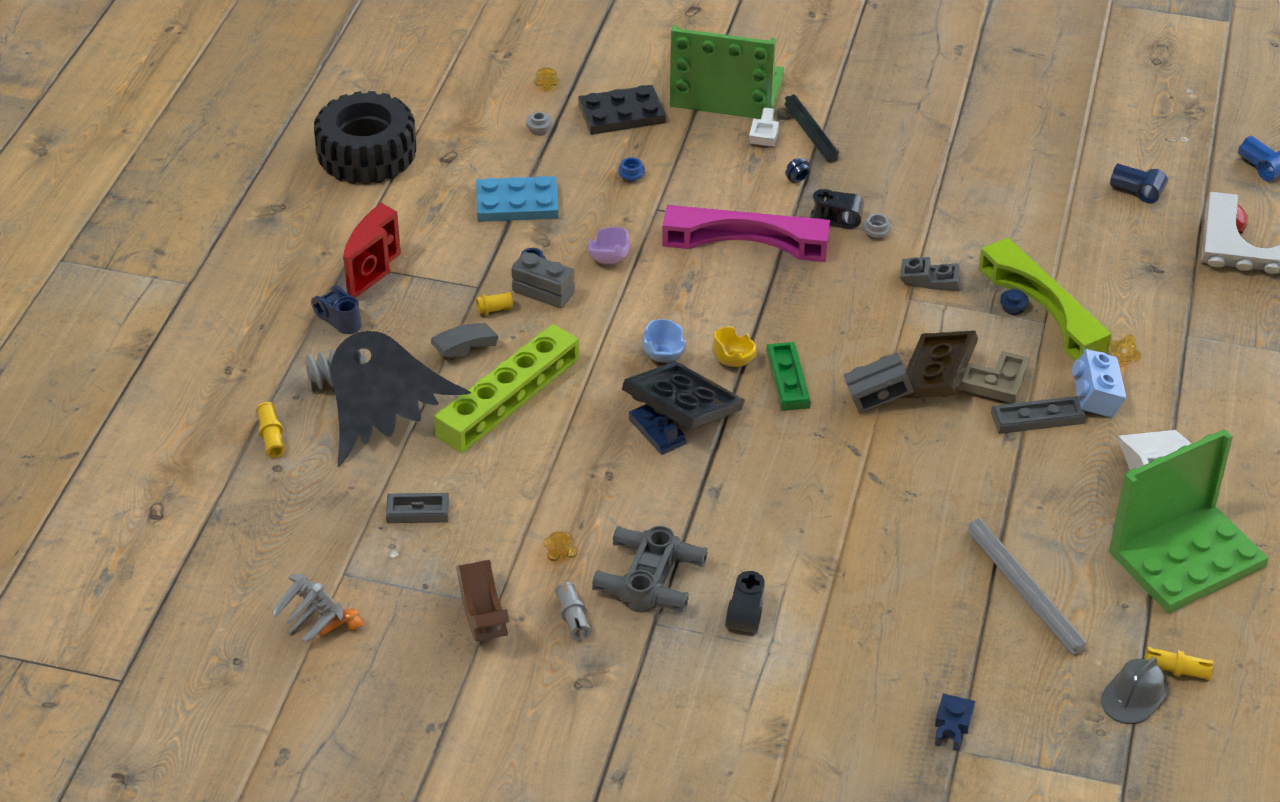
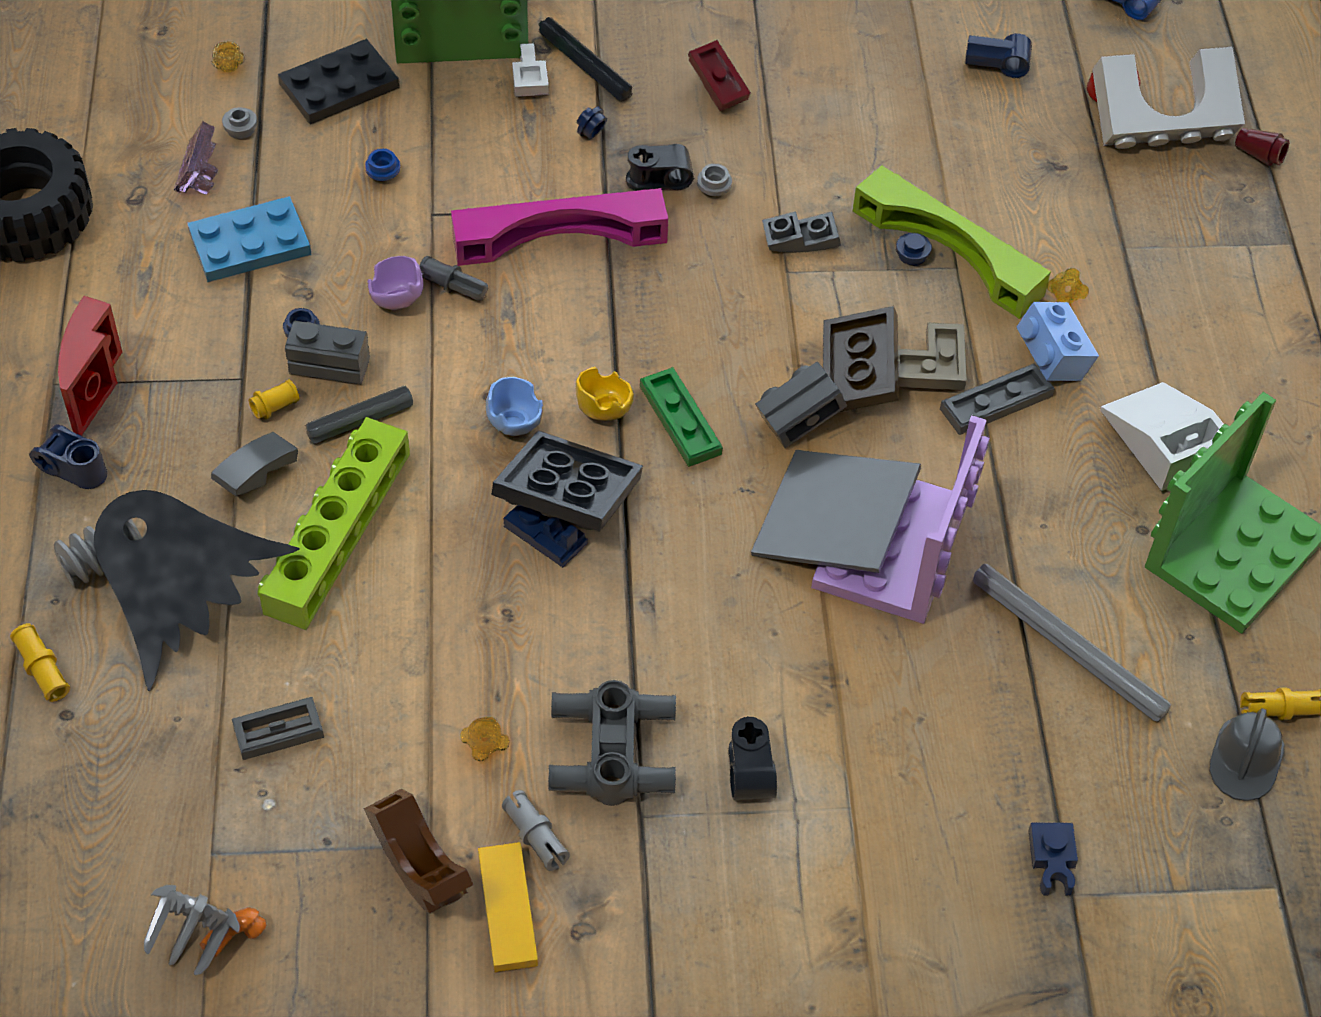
camera: 20 degrees left, 10 degrees up
(498, 142) = (193, 168): none -> clear purple plate
(534, 654) = (507, 907): none -> yellow tile
(569, 323) = (354, 415): none -> dark grey axle
(653, 252) = (452, 278): none -> dark grey axle
(878, 458) = (837, 510): none -> piece
(908, 156) = (718, 75): none -> dark red plate
(925, 485) = (921, 544): none -> lavender bracket

